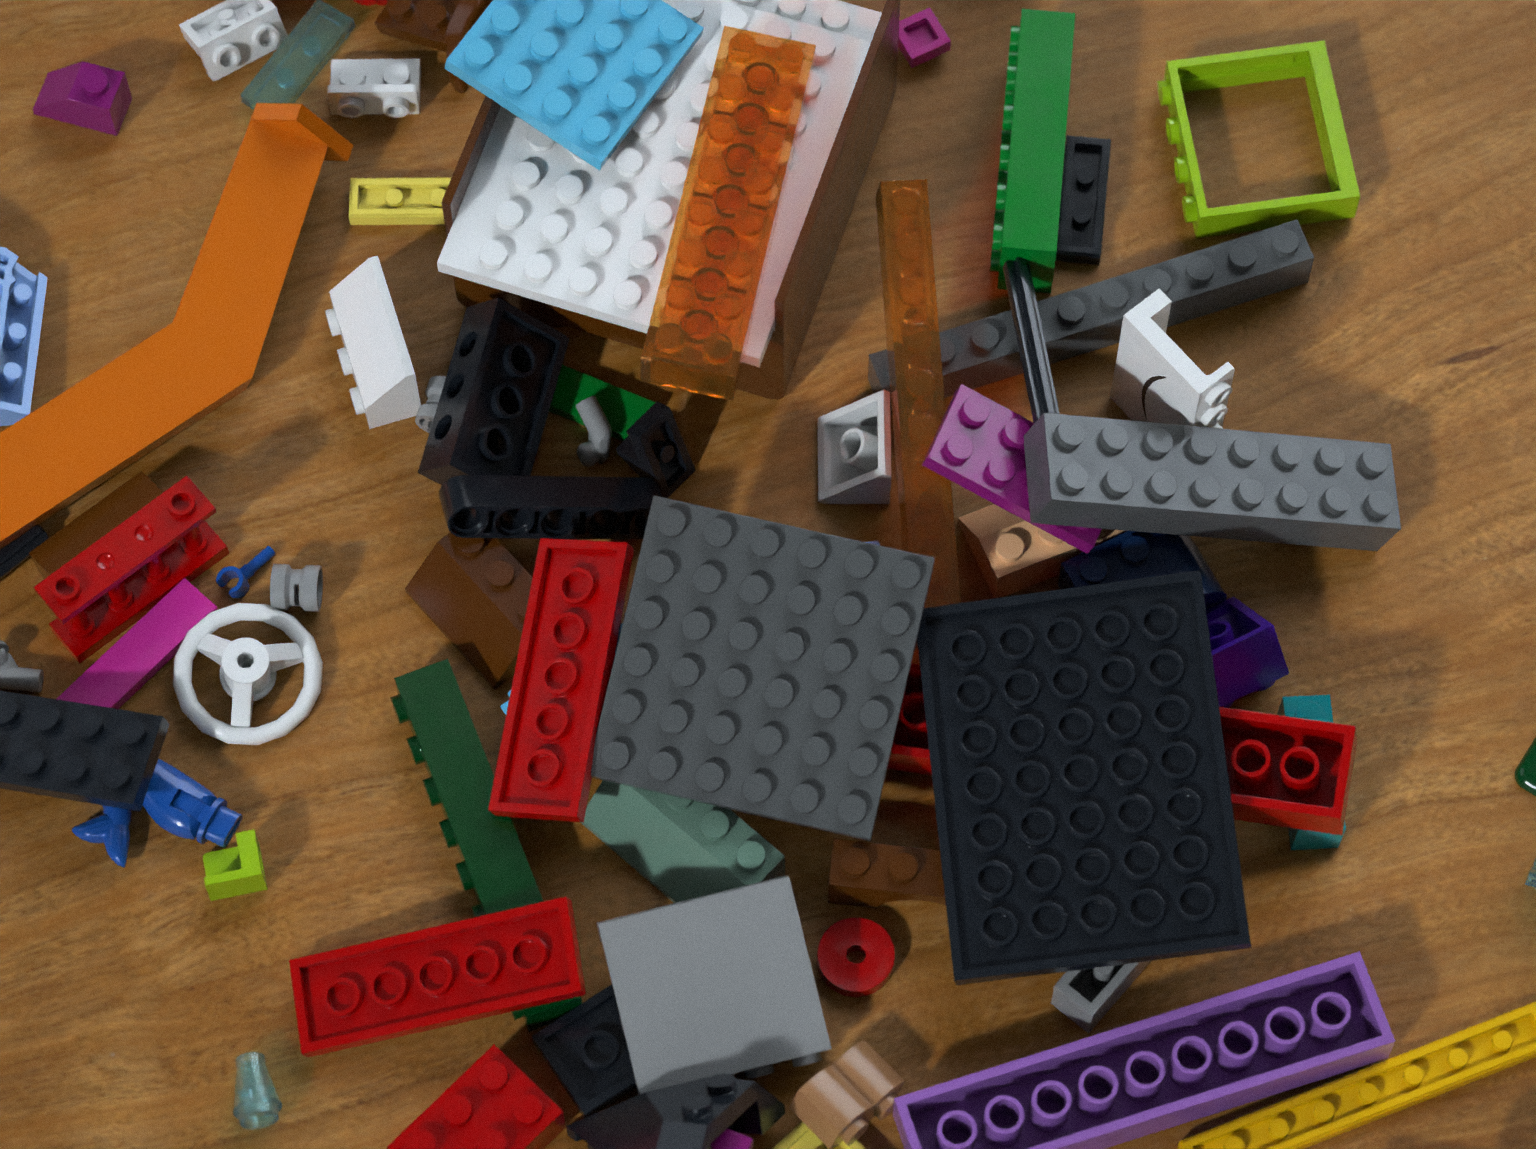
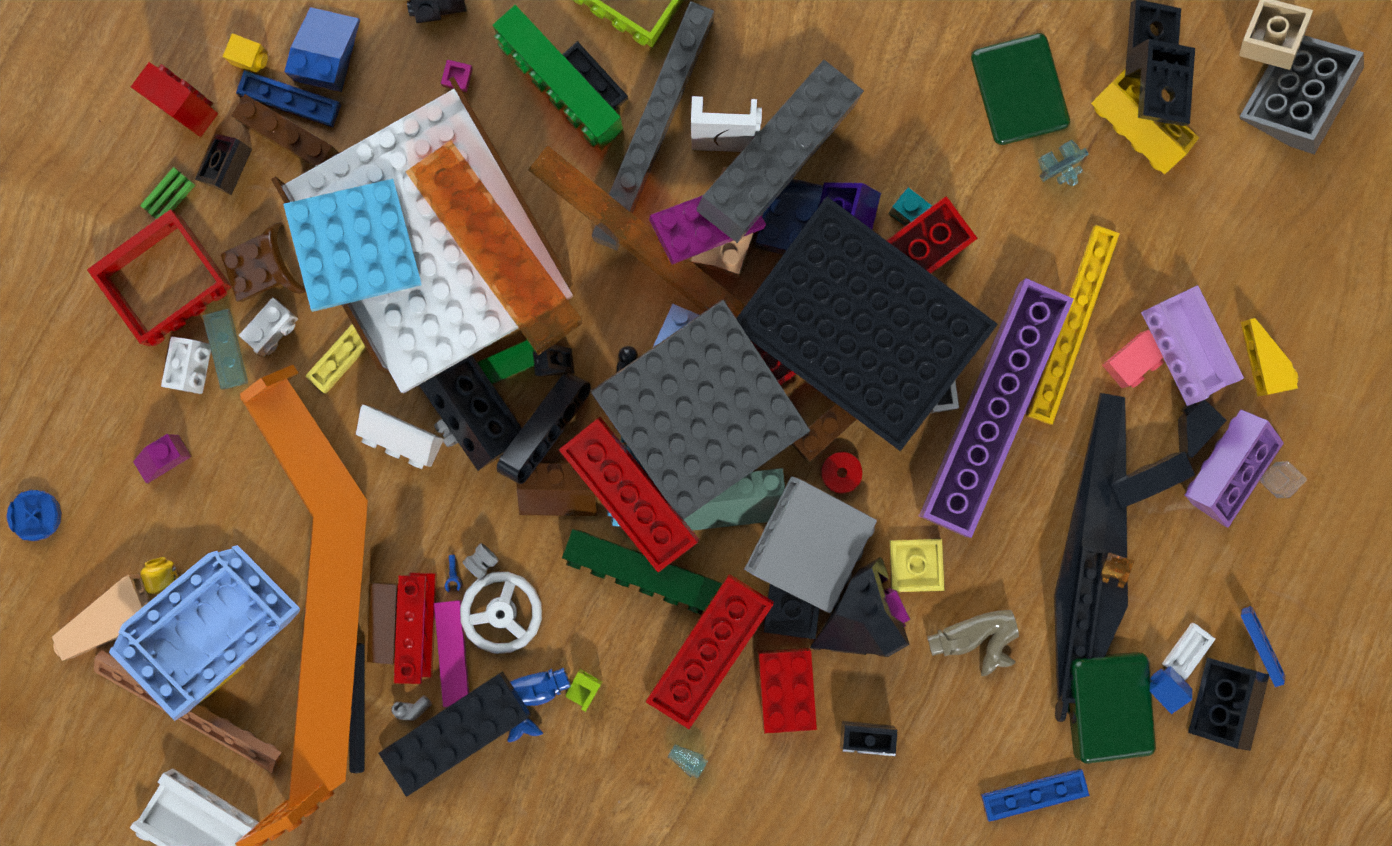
camera: 45 degrees left, 20 degrees up
(599, 433) = (521, 375): light grey arm -> none
(847, 1096) = (900, 529): medium nougat brick -> none
(856, 452) = (626, 277): white slope -> none
(1030, 338) = (654, 166): black axle -> none

